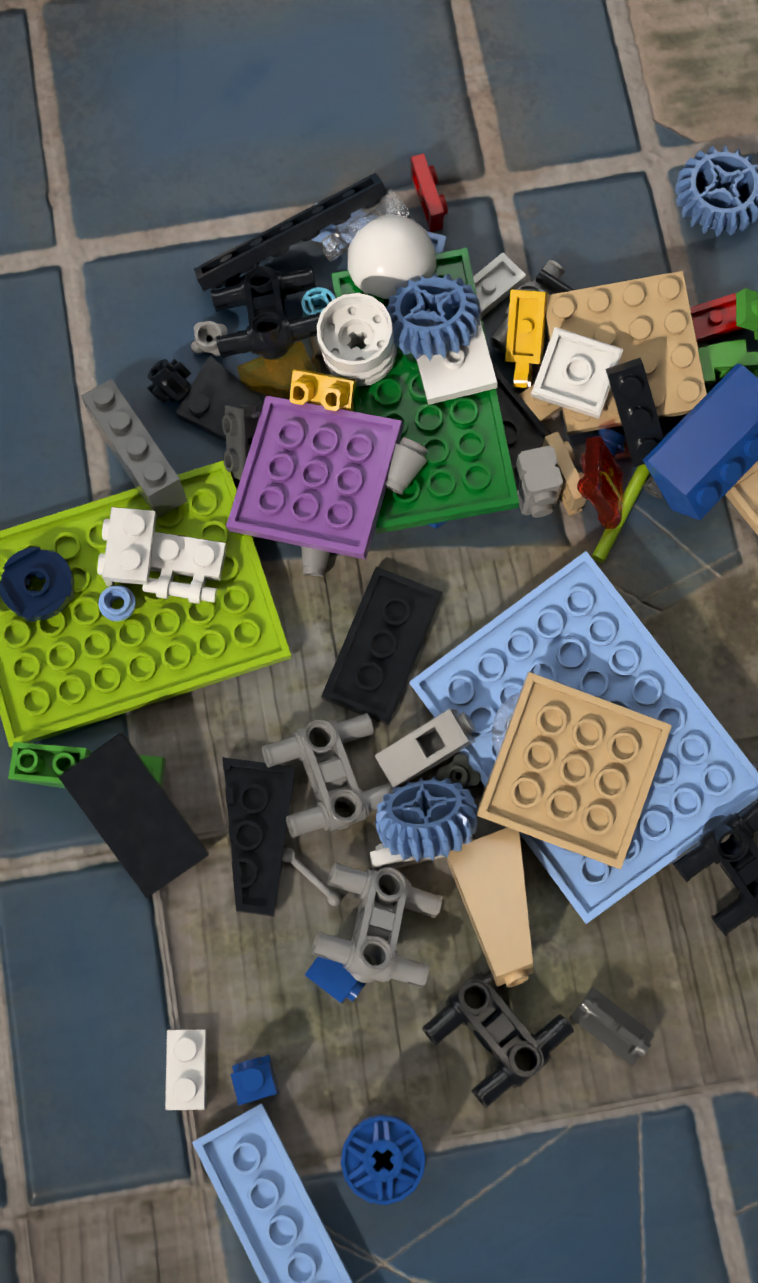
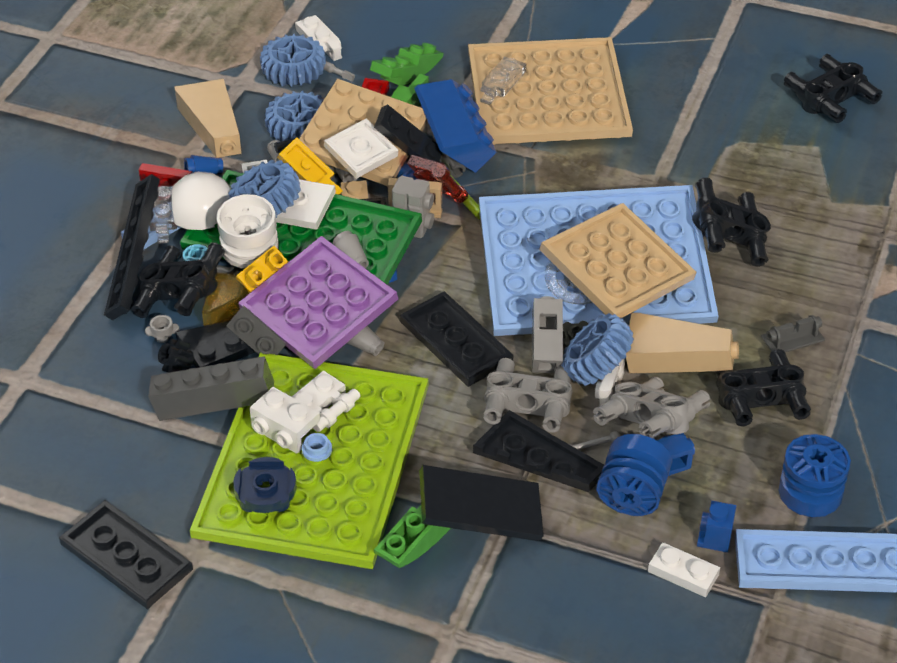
camera: 60 degrees left, 30 degrees down
(262, 957) = (634, 475): none -> blue wheel
(474, 214) = (204, 164): none -> blue cone
(566, 166) = (210, 115): none -> tan slope
(624, 244) = (291, 114): none -> medium blue gear
(746, 239) = (329, 67): none -> light grey piece

